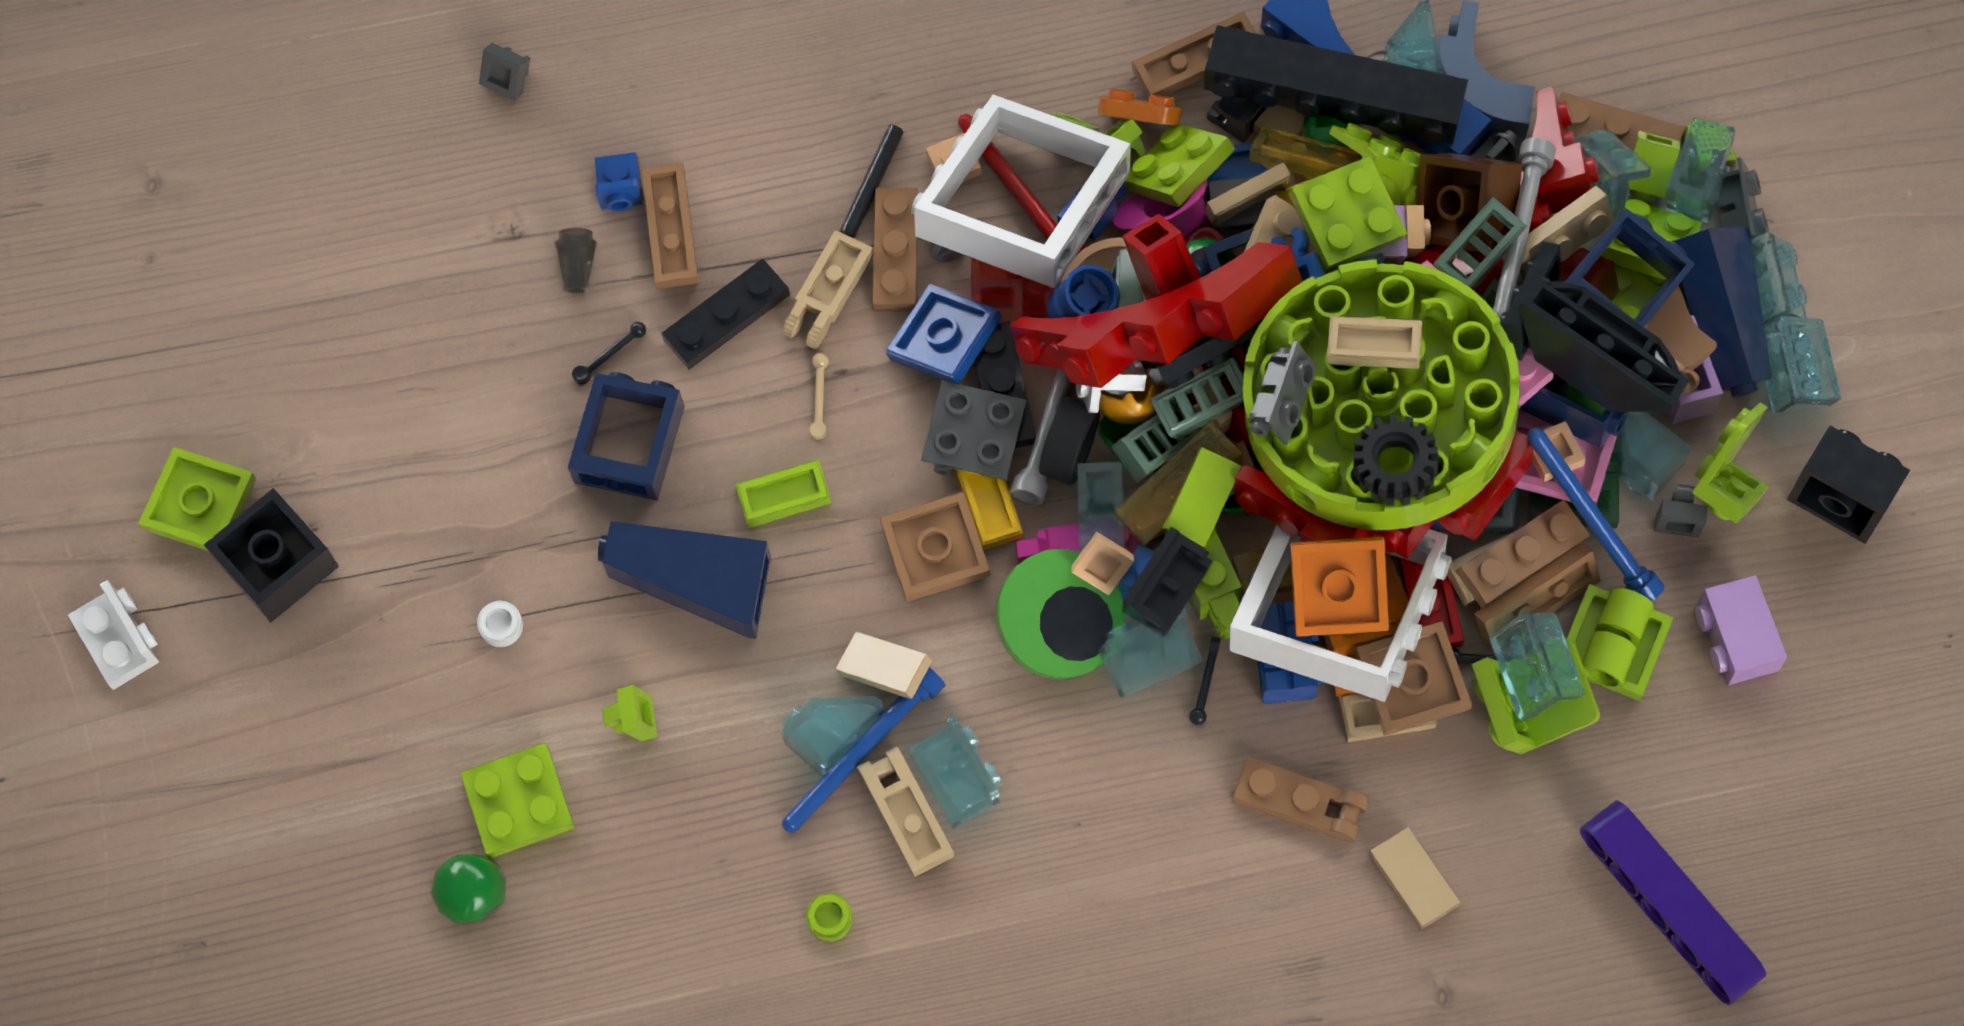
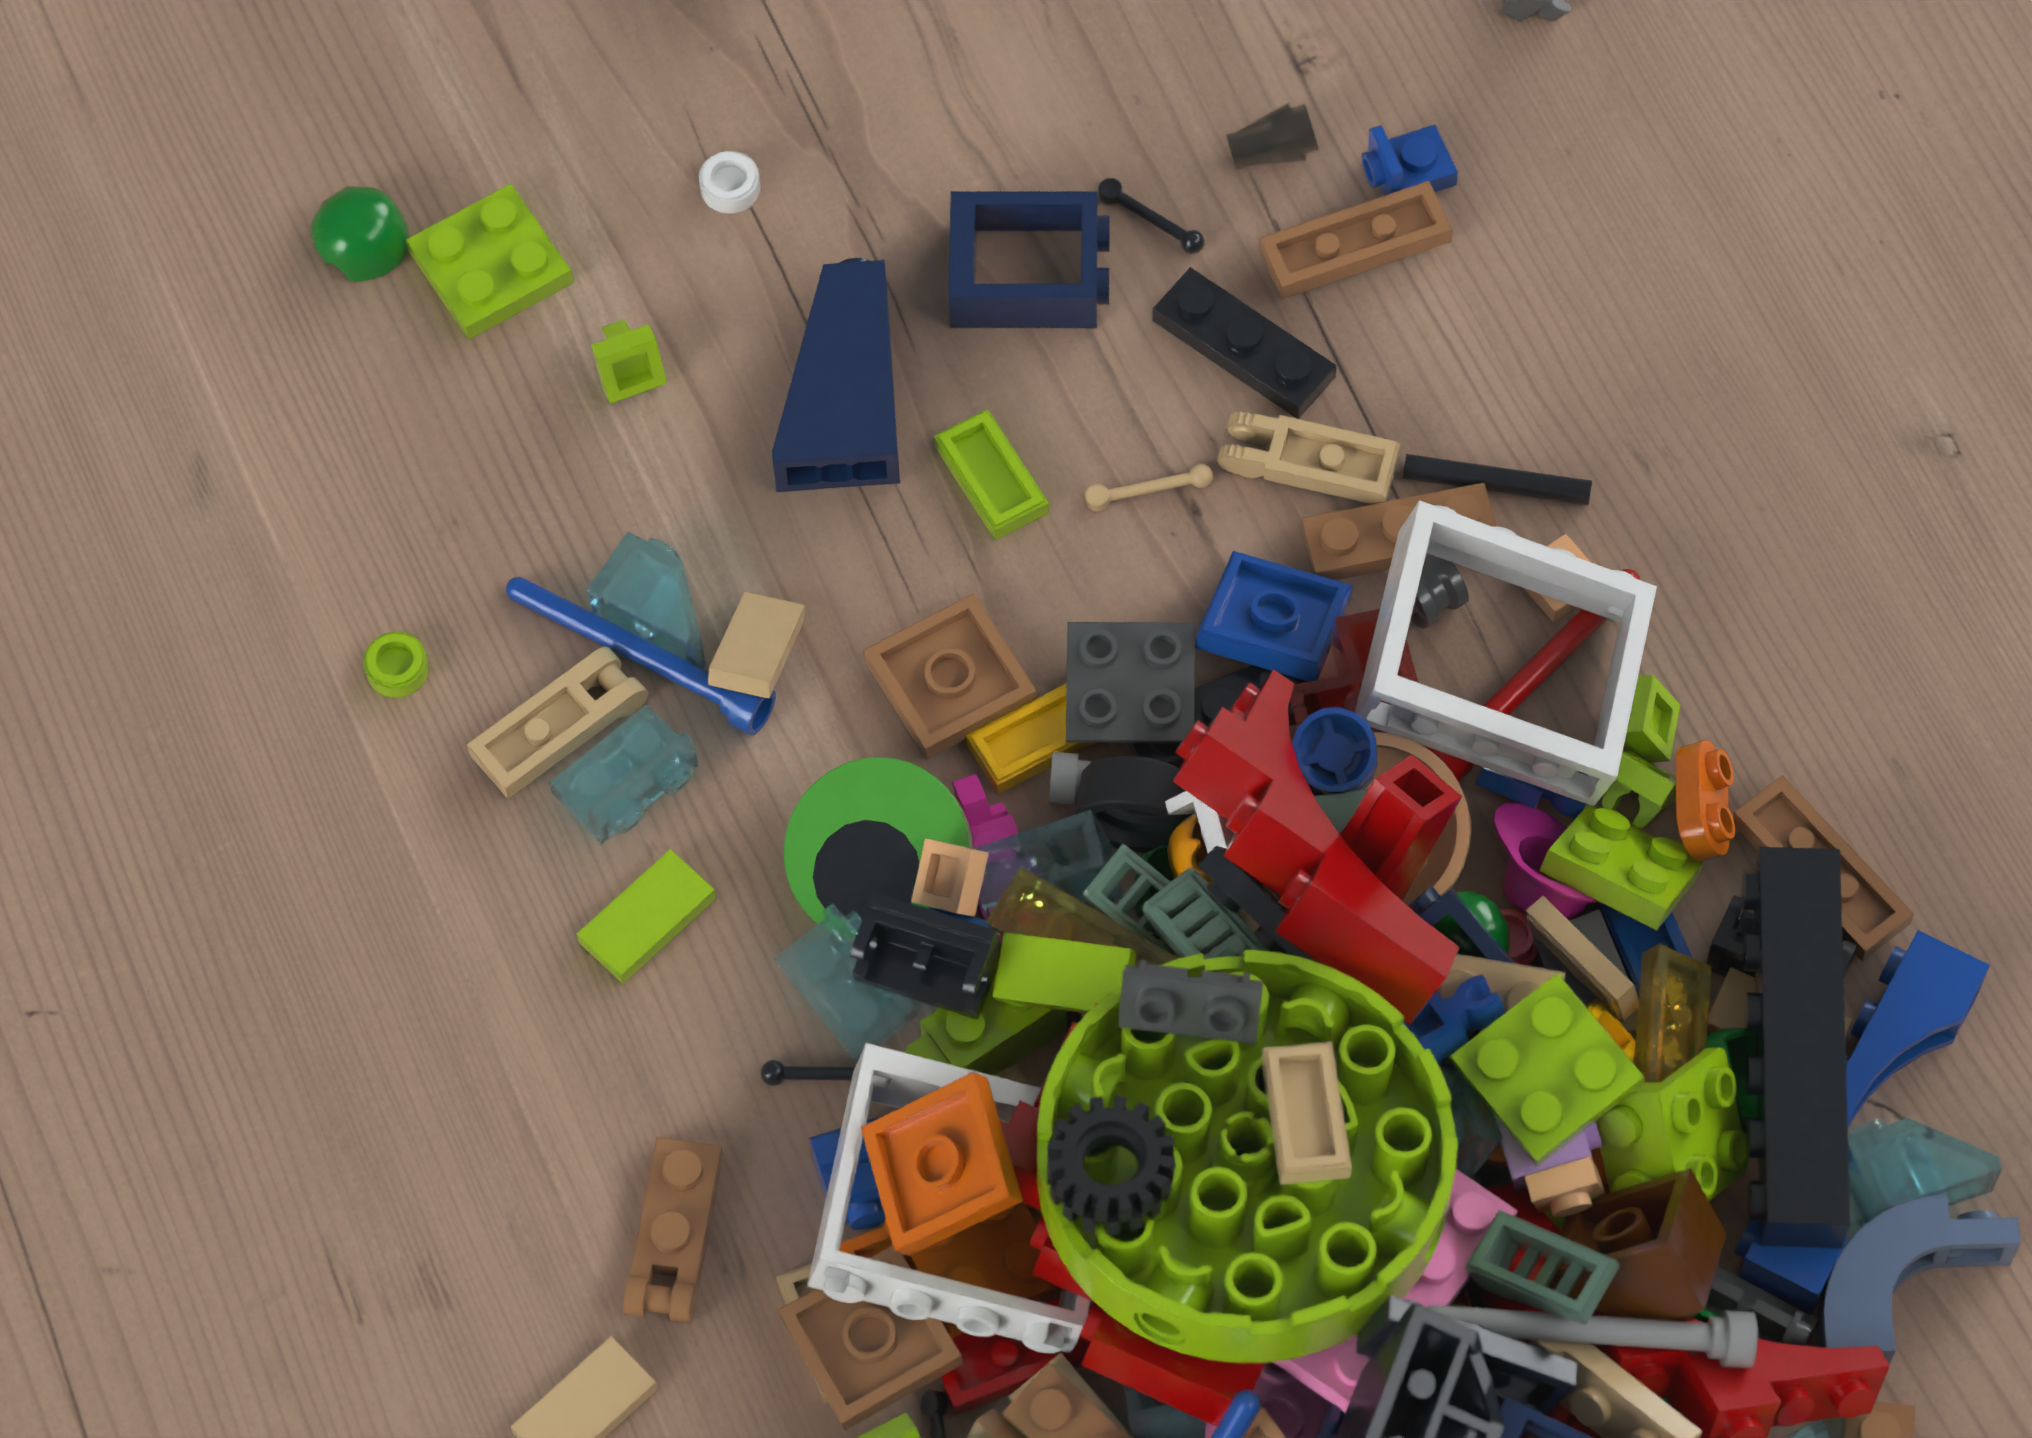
camera: 75 degrees right, 5 degrees down
(1065, 778) = (646, 916): none -> lime tile

